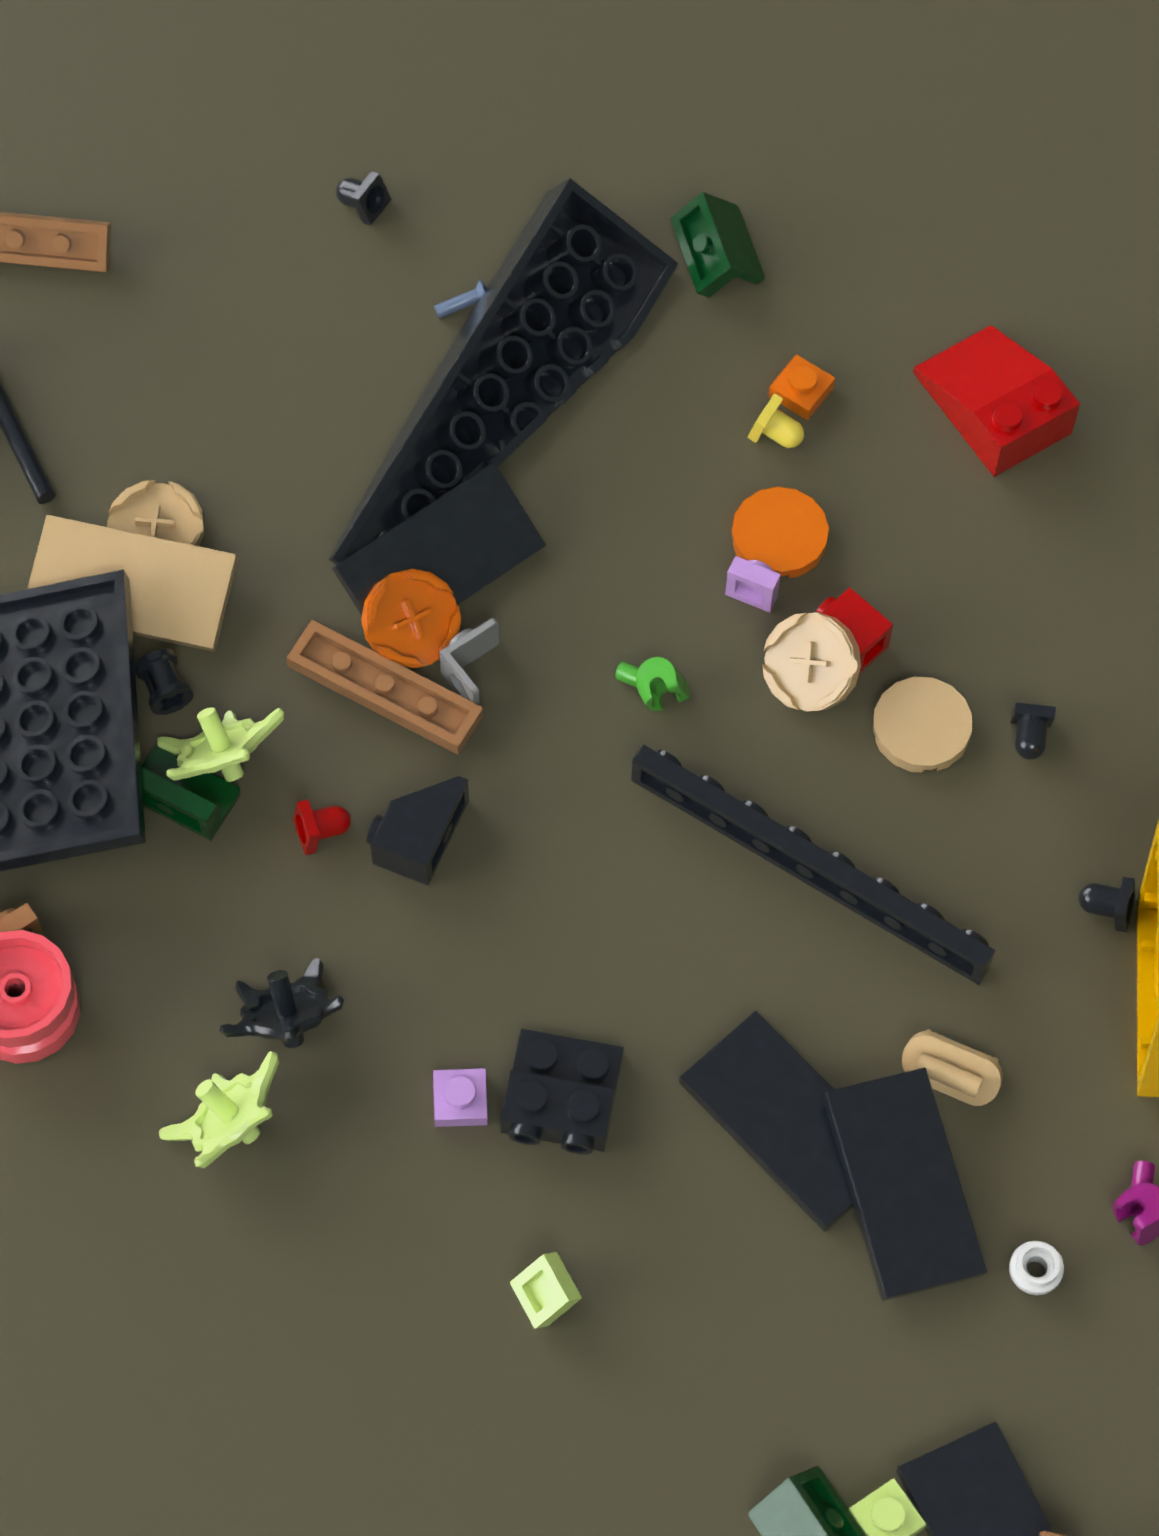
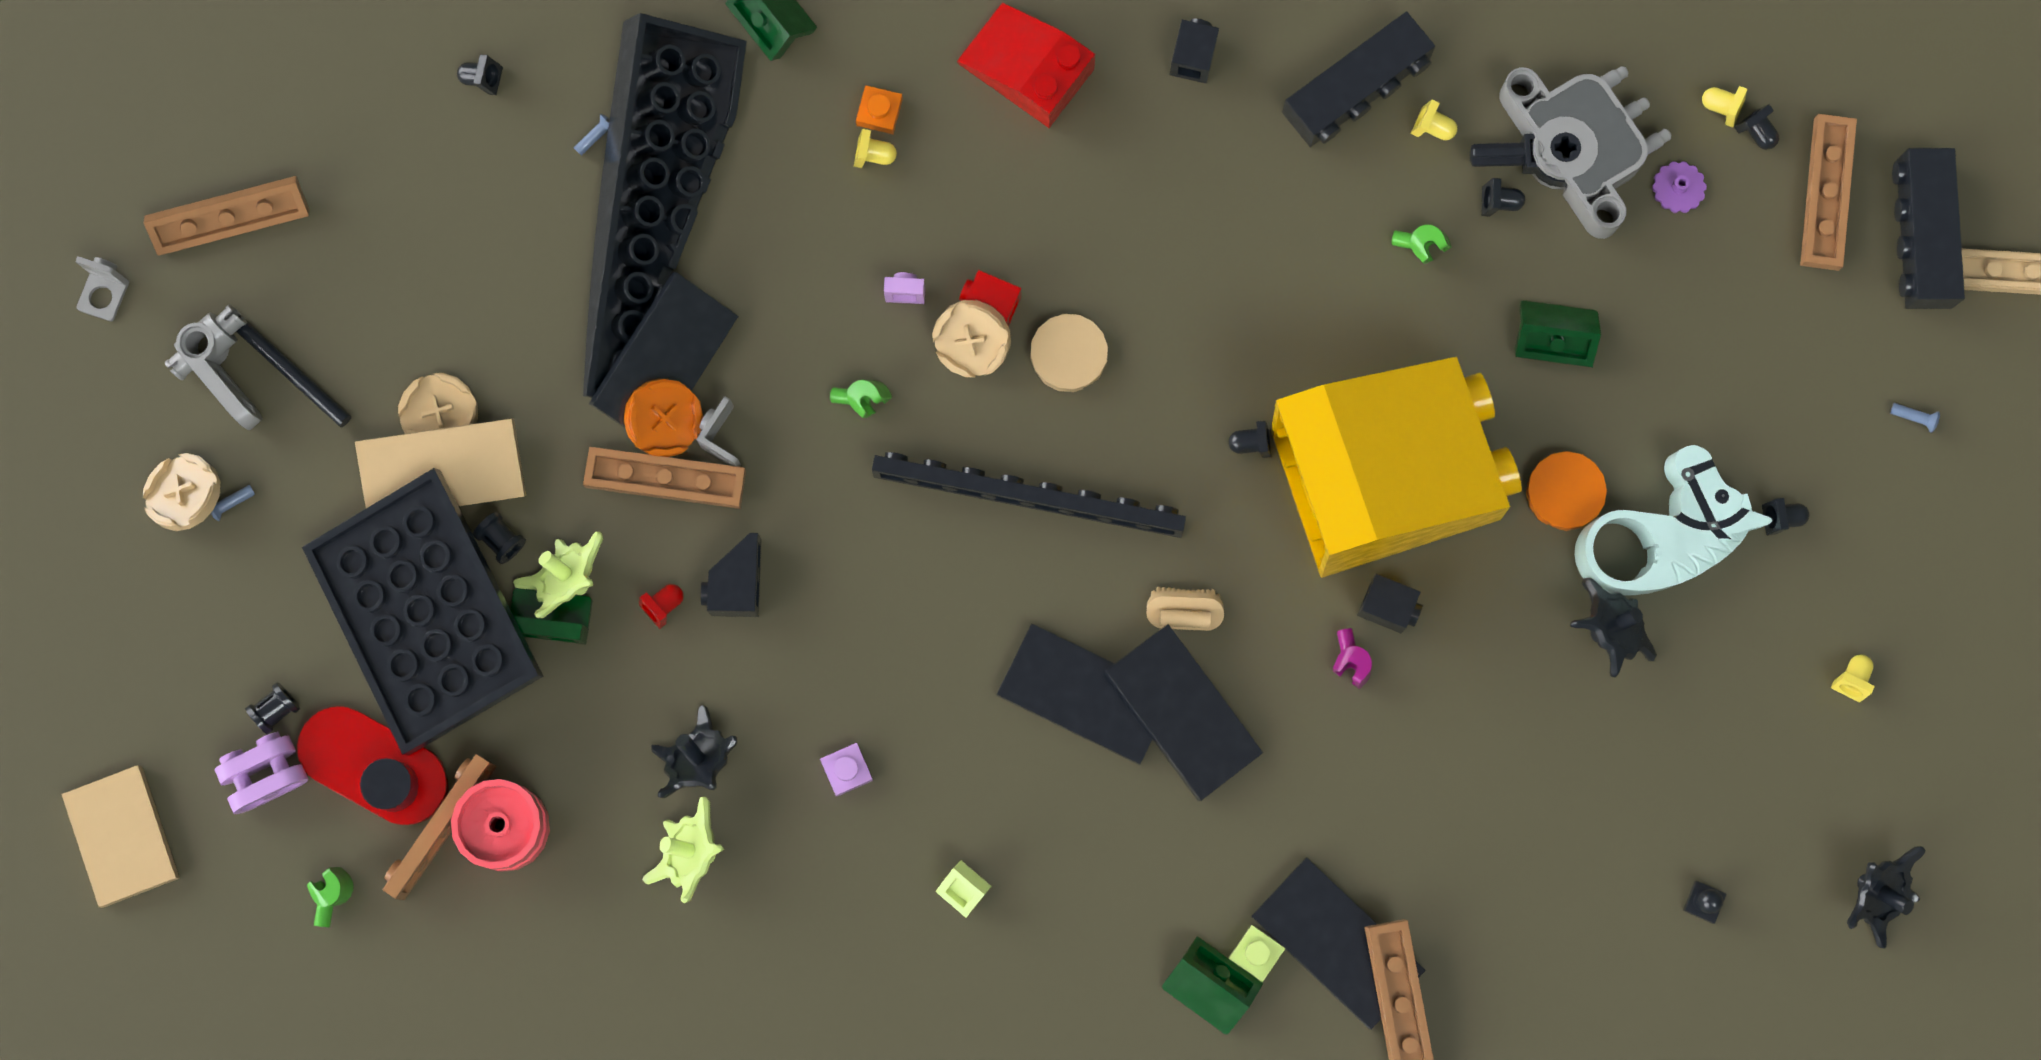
camera: 20 degrees left, 15 degrees up
(561, 1092) = (916, 737): black plate -> none
(781, 530) = (908, 237): orange tile -> none
(1031, 728) = (1150, 328): black piece -> none
(1045, 1255) = (1298, 722): white plate -> none

